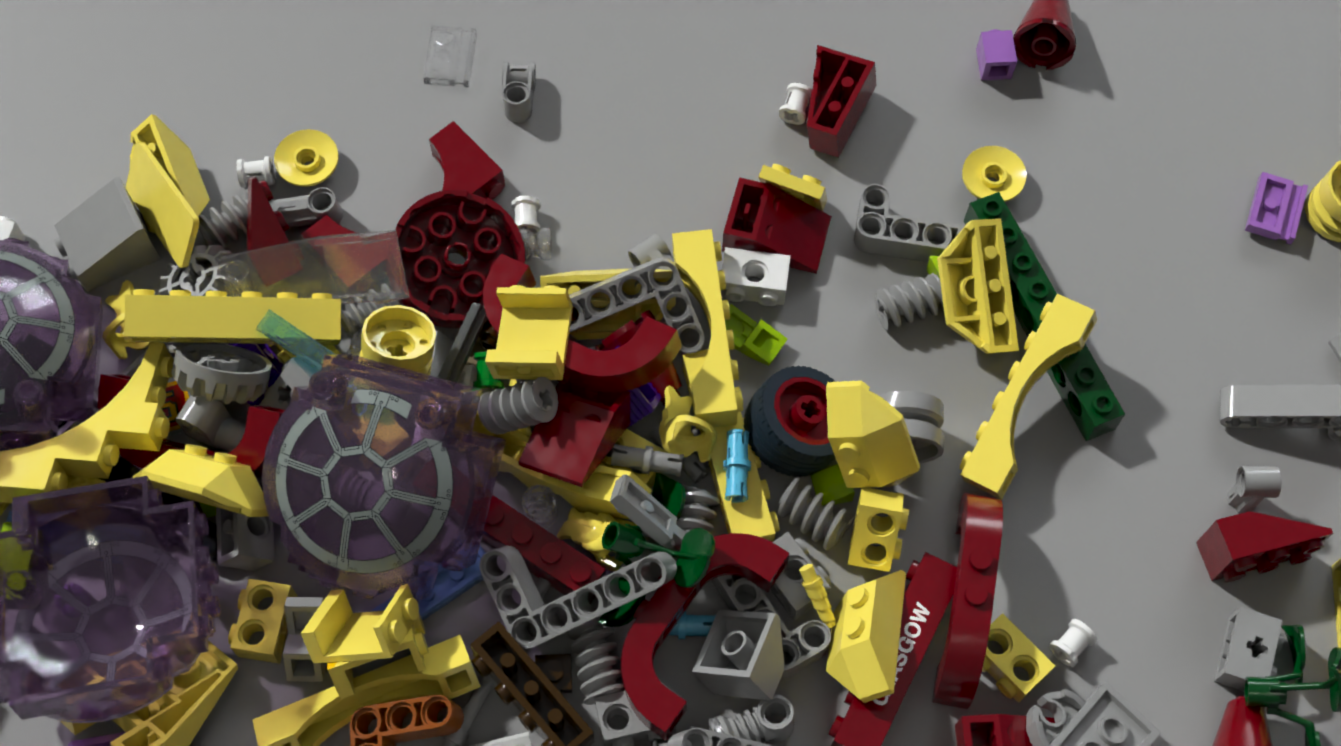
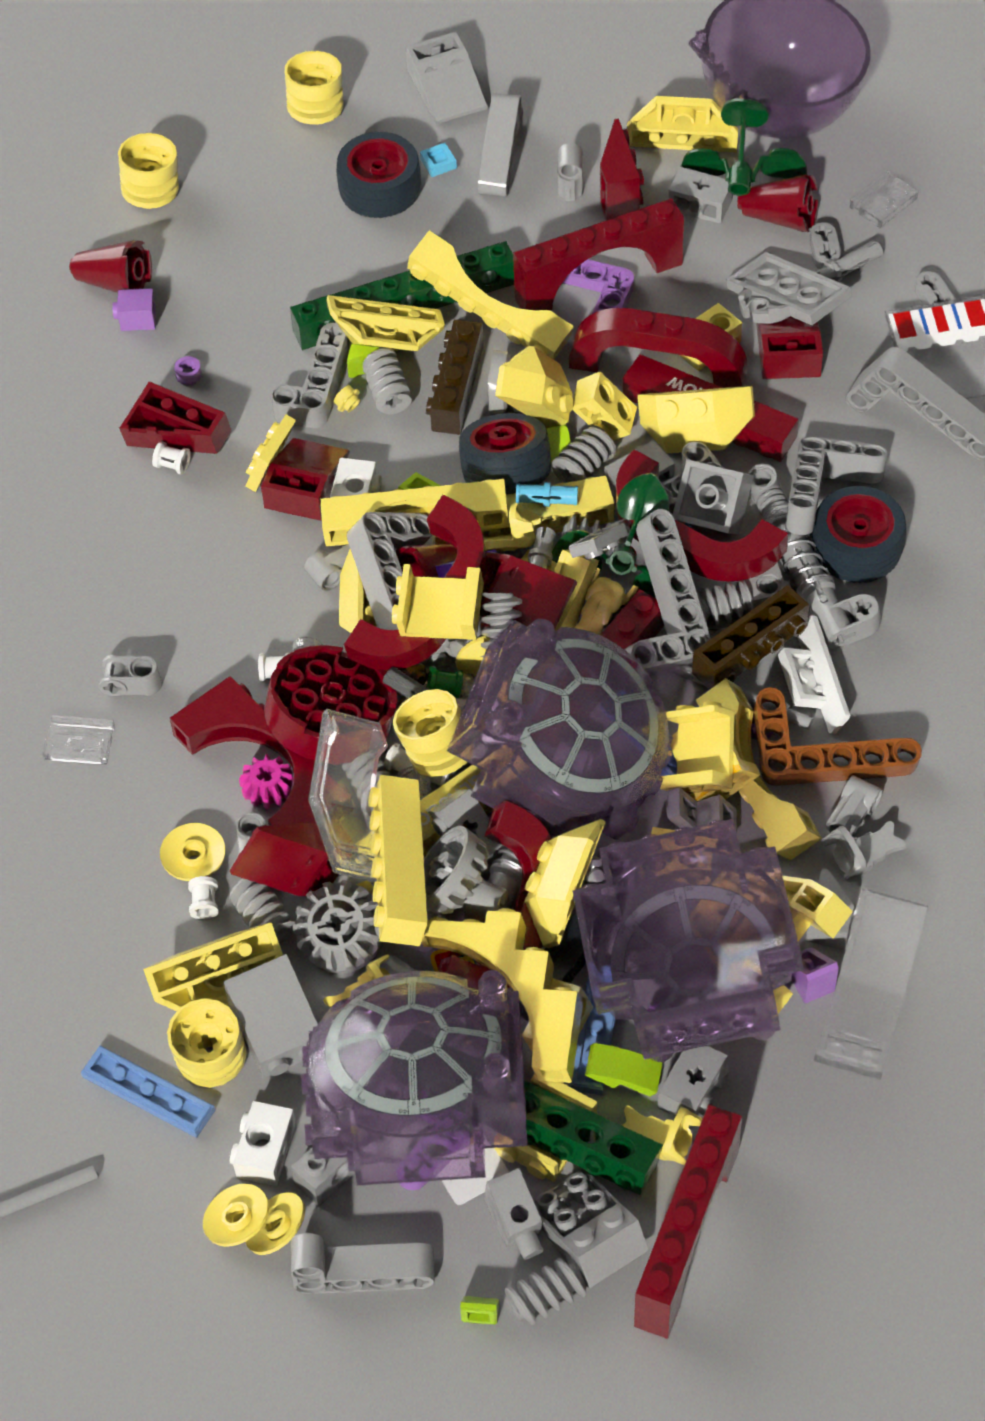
camera: 85 degrees left, 10 degrees down
(59, 145) = (148, 1091): none -> medium blue tile
(75, 171) = (205, 1025): none -> light yellow wheel
(162, 205) = (276, 930): light yellow piece -> none
(293, 340) = (434, 796): clear light blue piece -> none
(381, 212) = (266, 781): none -> dark pink gear
(816, 592) = (661, 444): light yellow animal -> none
(888, 266) = (347, 399): none -> light yellow plate
(920, 121) = (191, 377): none -> medium lavender bush
(935, 372) = (456, 377): none -> dark brown brick
(998, 164) = (262, 318): light yellow dish -> none
(1073, 642) = (694, 298): white bush -> none
(1091, 538) = (606, 284): none -> medium lavender beam
(1150, 577) = (544, 266): none -> dark red arch
(1191, 44) = (148, 170): none -> light yellow wheel
(1223, 276) = (378, 174): none -> black wheel
(1264, 344) = (438, 159): none -> medium azure plate
(1276, 208) = (311, 139): medium lavender plate -> none

